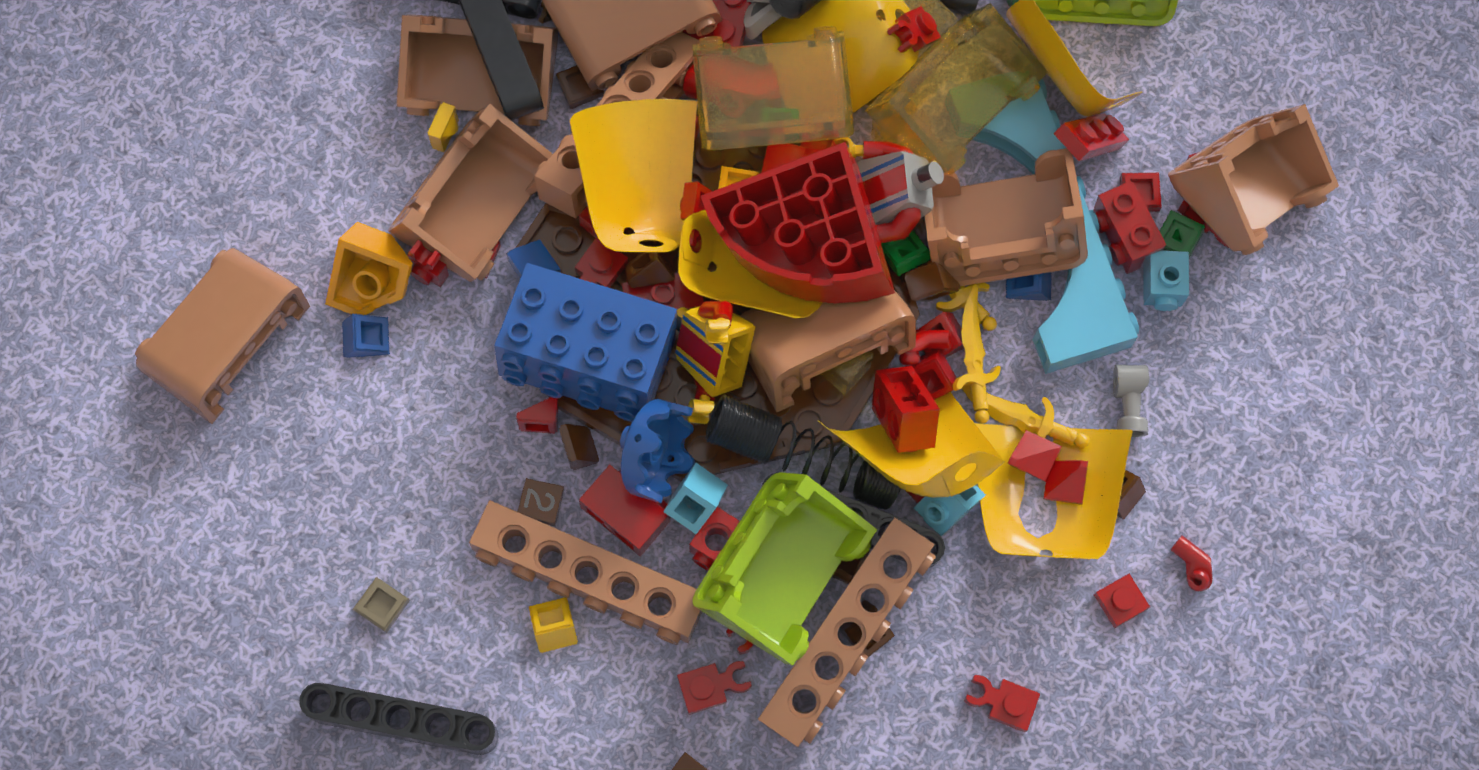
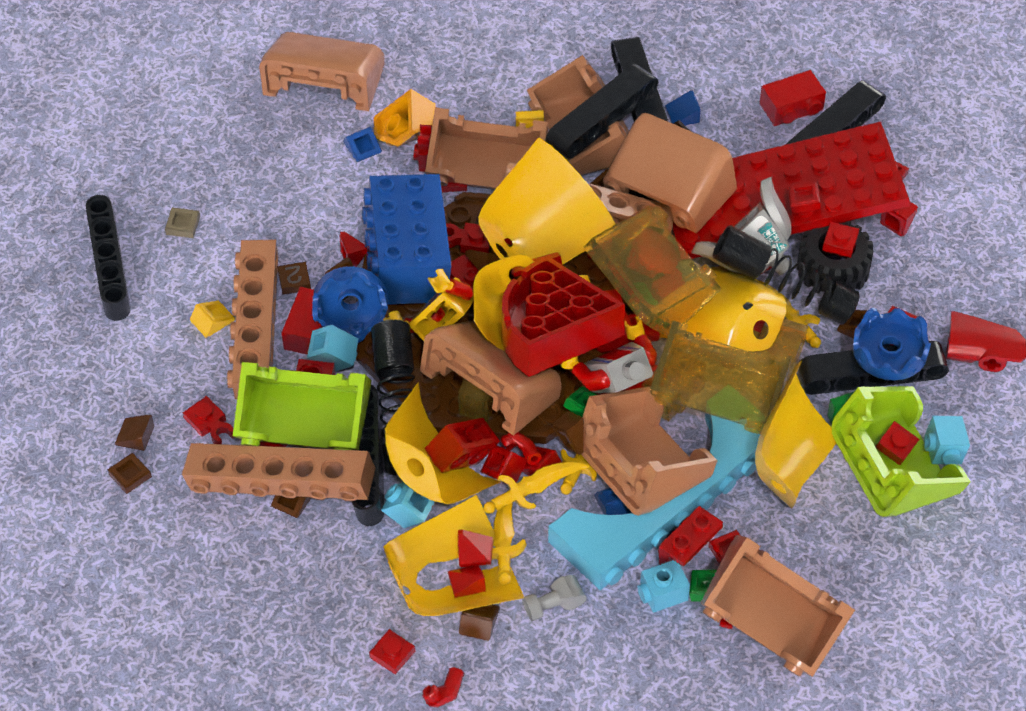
camera: 70 degrees right, 20 degrees down
(531, 253) = (457, 200): blue slope -> none
(915, 30) = (754, 334): red plate -> none
(1009, 703) = (279, 604): red plate -> none
(1092, 136) = (743, 483): red plate -> none

